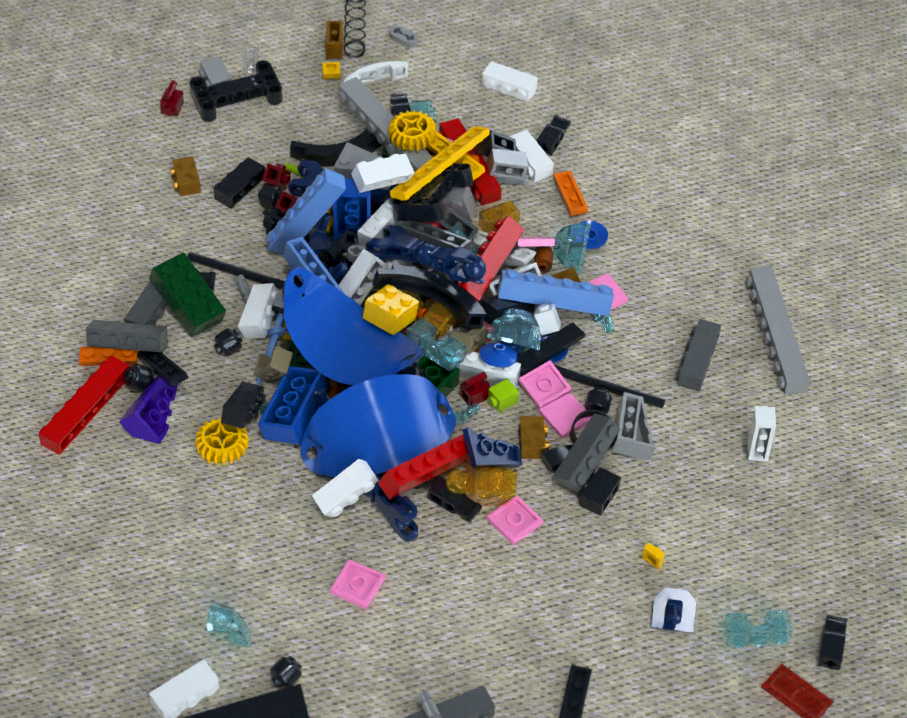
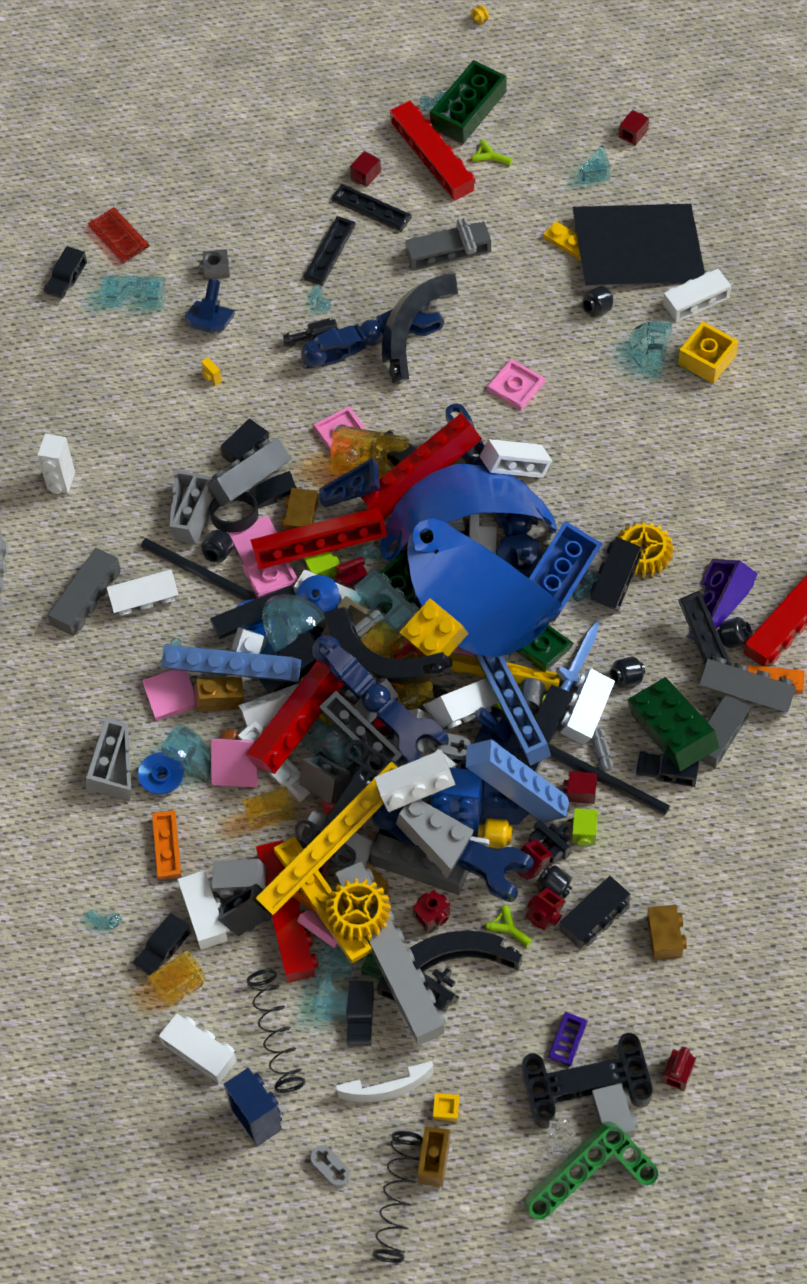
camera: 165 degrees left, 10 degrees up
(170, 623) = (708, 352): none -> yellow brick
(228, 41) = (588, 1166): none -> green beam
(249, 118) = (568, 1017): none -> dark purple slope
(252, 233) = (584, 827): none -> lime brick
(258, 258) = (580, 787): none -> dark red brick
(274, 367) = (578, 618): dark tan panel -> none
(346, 128) = (445, 996): none -> black hips
(437, 75) = (286, 1080): none -> black piece
(460, 39) = (253, 1106): none -> dark blue piece
(470, 620) = (402, 316): none -> black arch
(489, 622) = (339, 344): none -> dark blue piece
(509, 403) = (318, 538): none -> red brick
(536, 116) = (177, 979): none -> clear yellow brick
(563, 607) = (313, 330): none -> black piece
(571, 645) = (318, 300): none -> clear light blue arm
(595, 145) = (104, 922): none -> clear light blue arm
(629, 232) = (111, 763): none -> light grey wedge
(649, 356) = (143, 592): none -> white brick
(681, 674) = (215, 264): none -> flat silver brick

